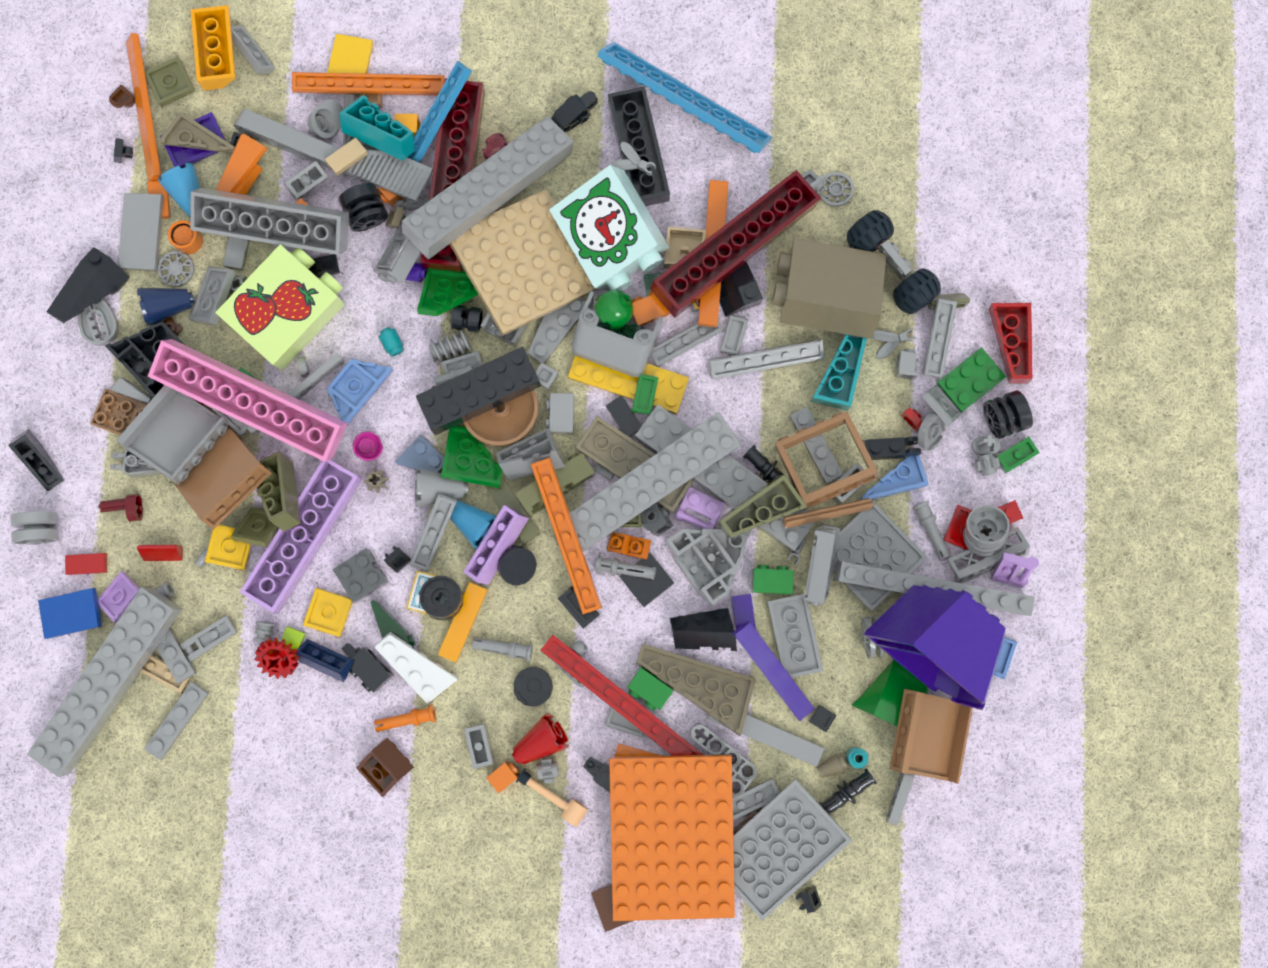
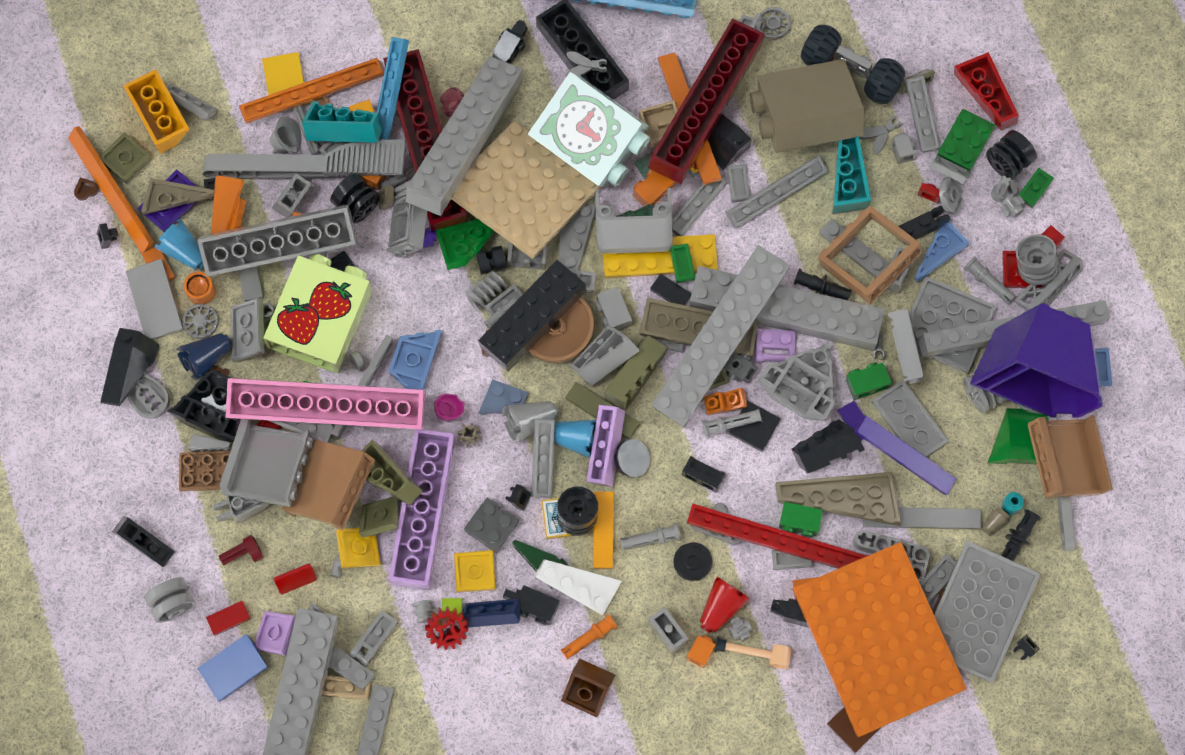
camera: 20 degrees left, 10 degrees down
(346, 156) = (322, 159): tan tile -> none
(391, 341) = (430, 307): teal brick -> none
(469, 460) = (548, 382): green plate -> none
(566, 535) = (667, 410): orange tile -> none
(614, 308) = (624, 196): green cylinder -> none
(764, 506) = (836, 309): olive wedge -> none
(822, 718) = (966, 484): black tile -> none
(827, 513) = (891, 299): medium nougat axle -> none
(1009, 567) = (1071, 285): lavender plate -> none

